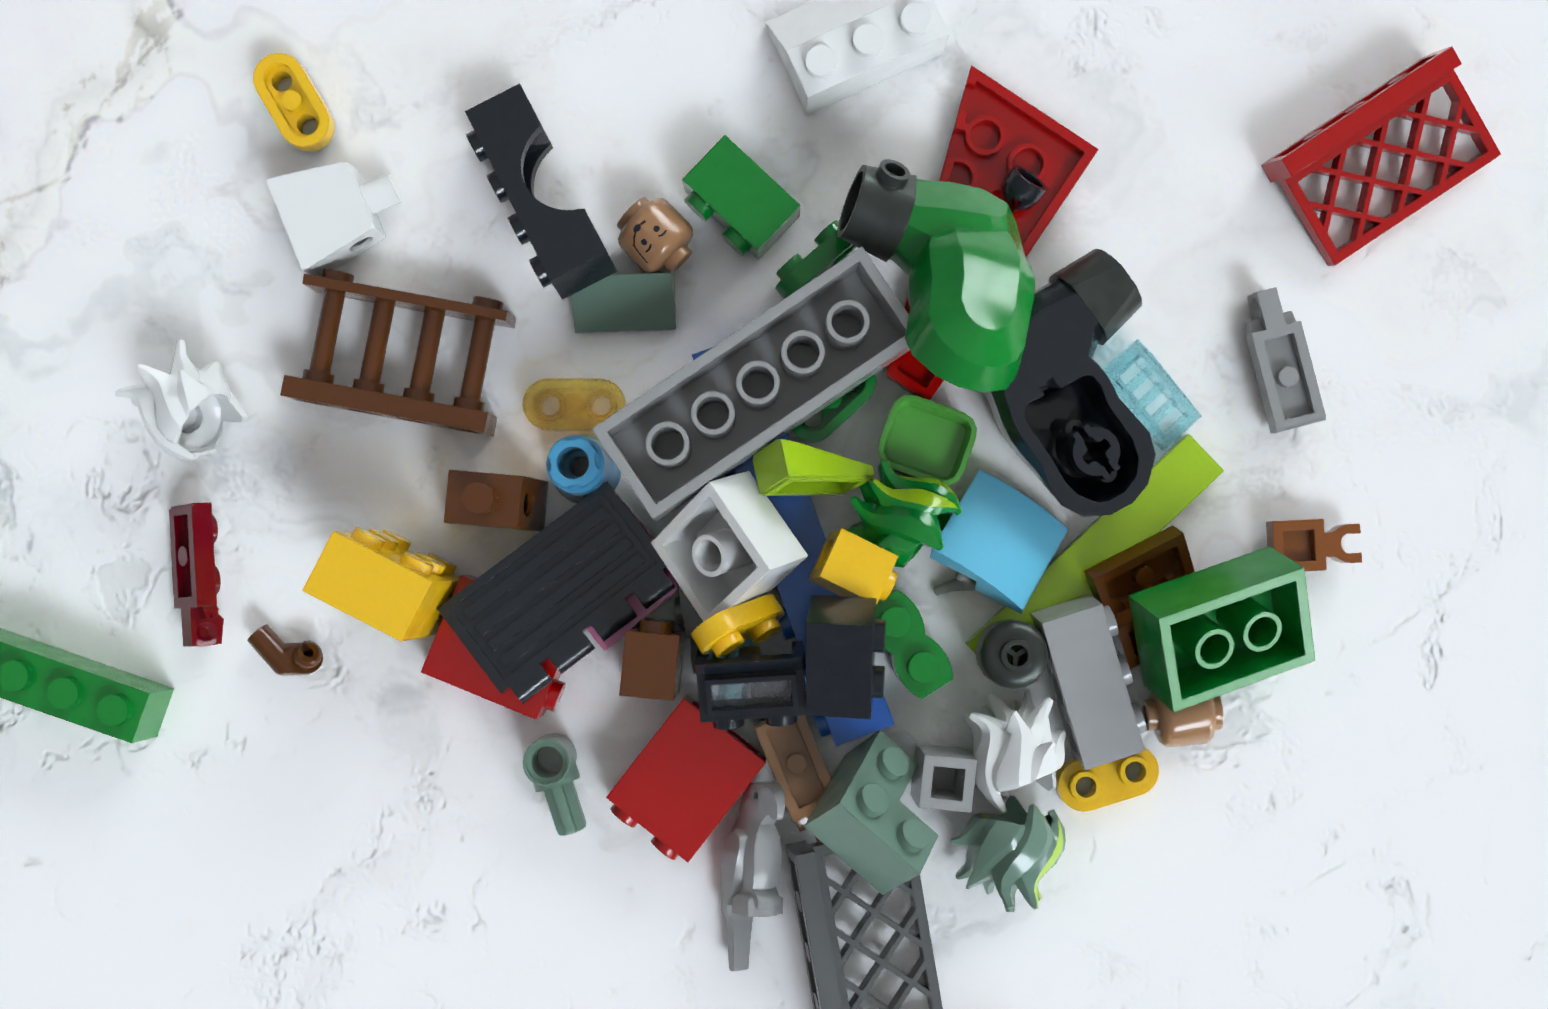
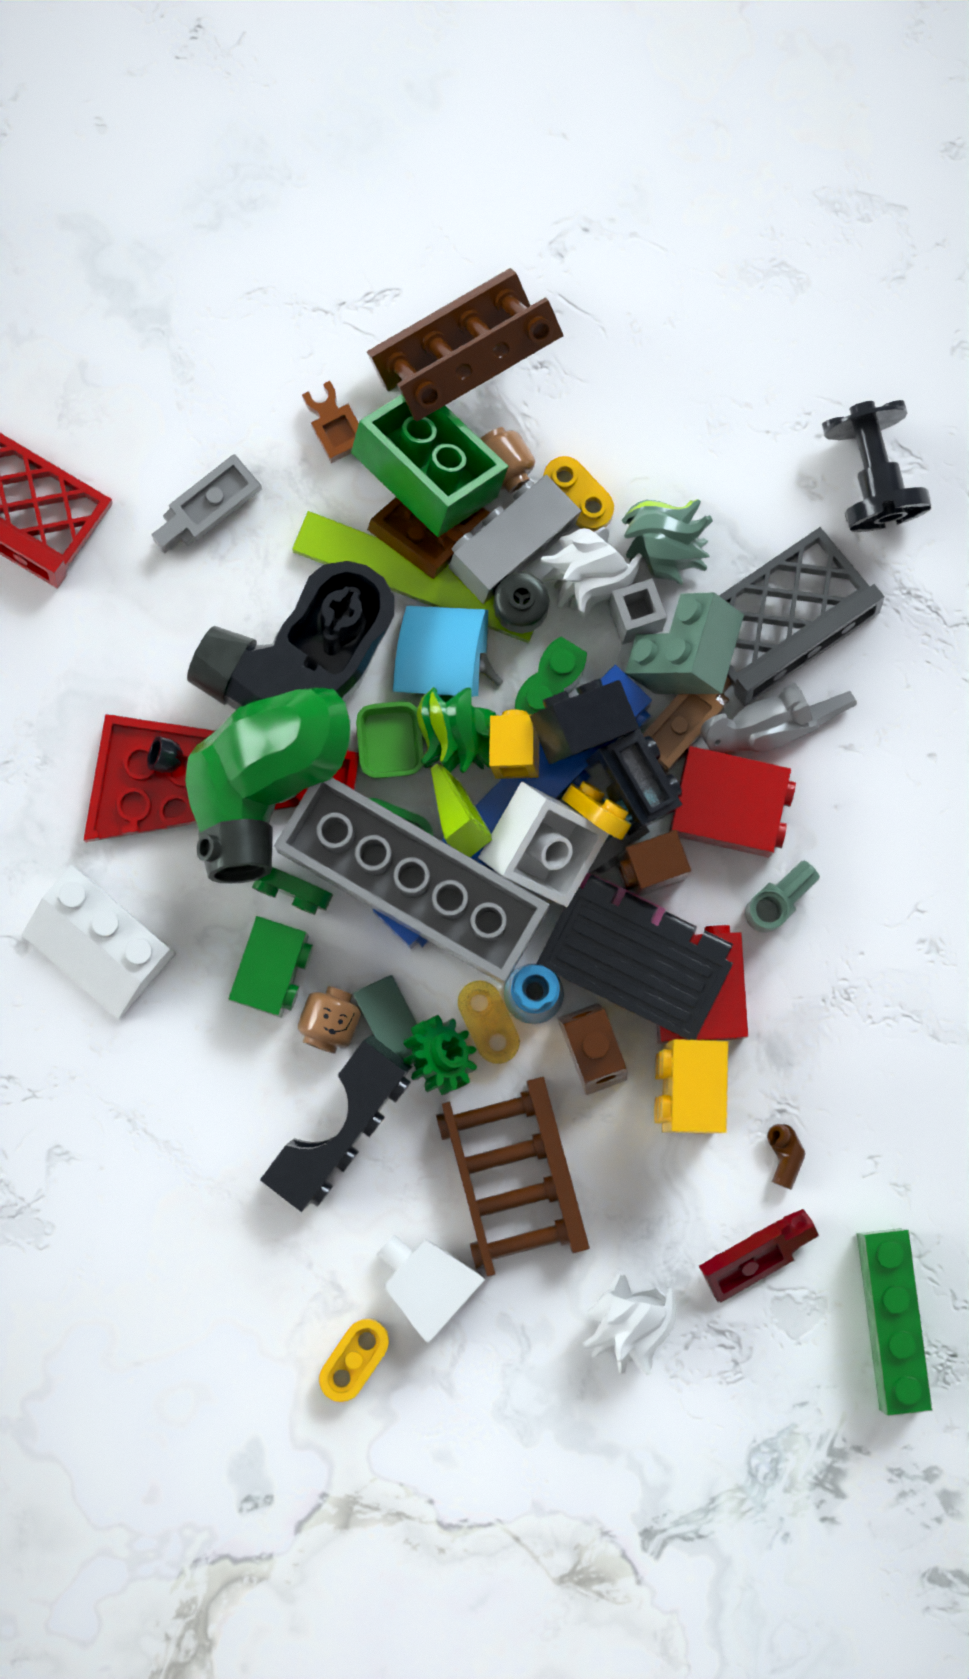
camera: 120 degrees left, 5 degrees down
(561, 334) = (440, 1055): none -> green gear
(1163, 383) = (262, 623): clear light blue slope -> none
(1337, 731) = (464, 344): none -> reddish brown fence

